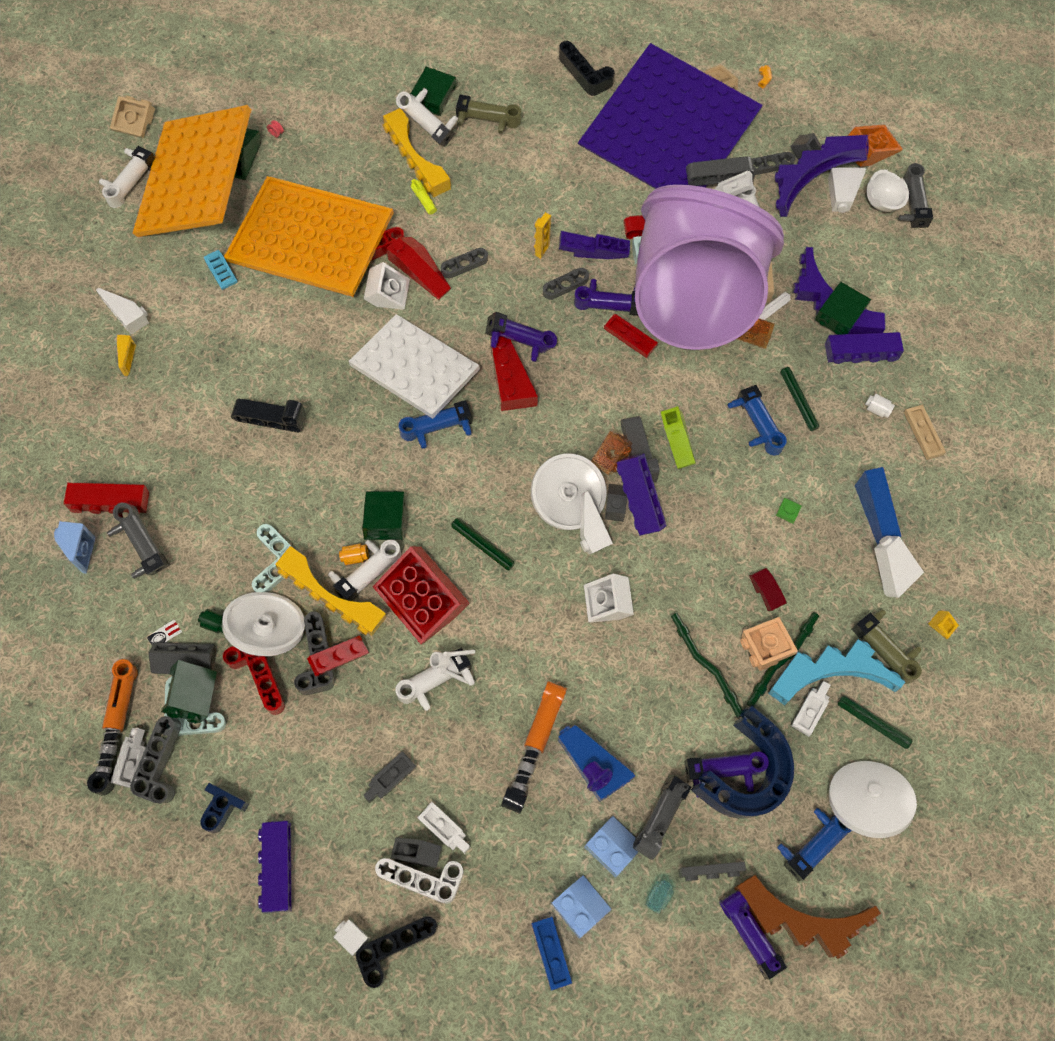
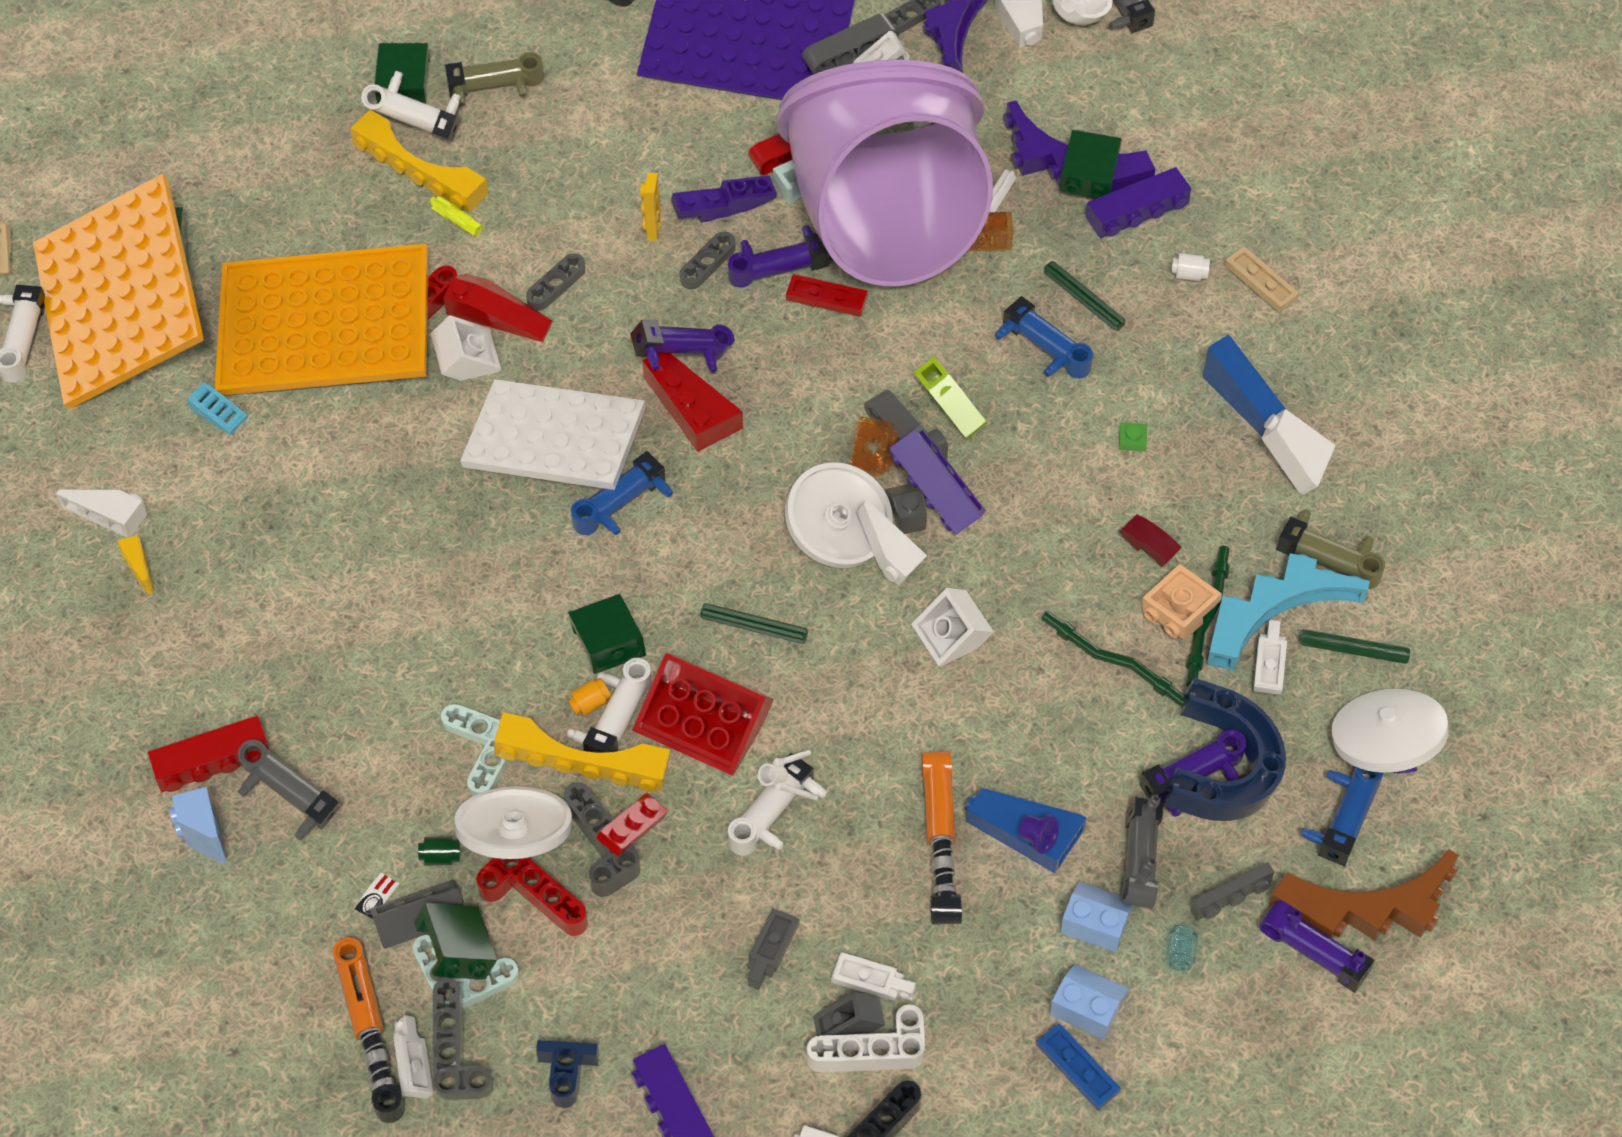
camera: 20 degrees left, 10 degrees down
(269, 415) = (385, 567): black beam -> none
(275, 128) = (200, 197): coral bush -> none
(944, 623) = (1388, 499): yellow slope -> none

